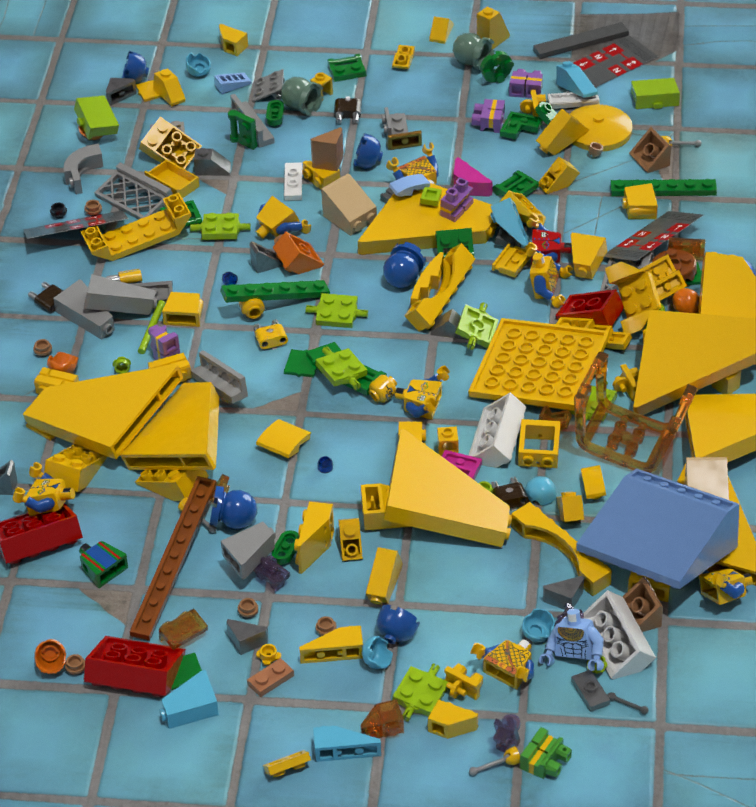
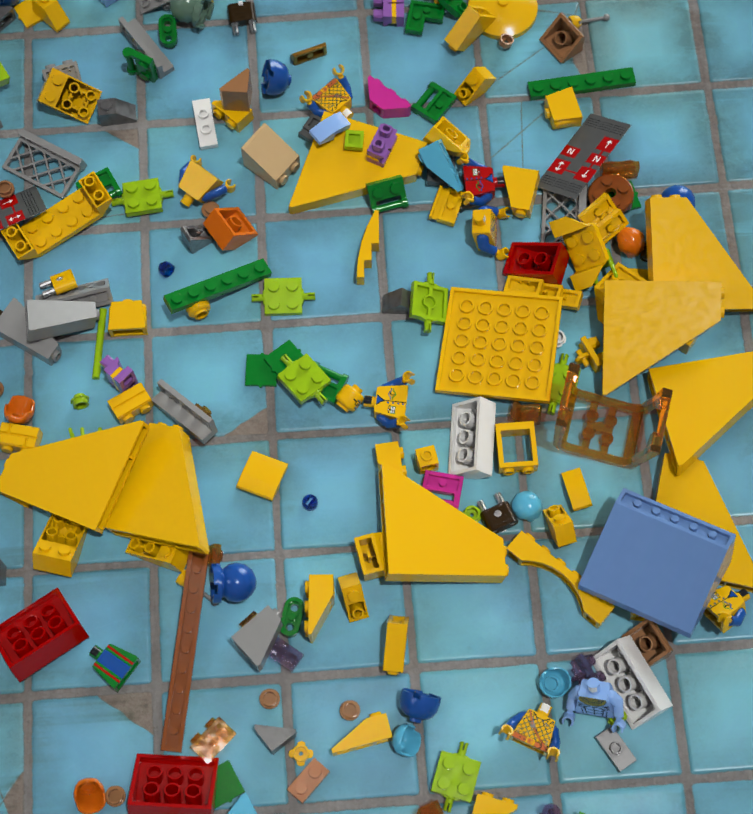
camera: 10 degrees left, 25 degrees up
(45, 493) = (41, 590): torso -> none
(174, 177) = (79, 139): yellow container -> none
(271, 335) = (224, 340): yellow piece -> none
(394, 123) = (296, 33): light grey bracket -> none
(403, 265) = (341, 233): blue tile -> none
(455, 266) = (393, 224): yellow arch -> none
(461, 684) = (502, 765): yellow hips -> none
(564, 592) = (573, 636): flat silver slope -> none
(612, 696) = (636, 752): dark grey hinge -> none
(708, 475) = (695, 495): tan slope -> none

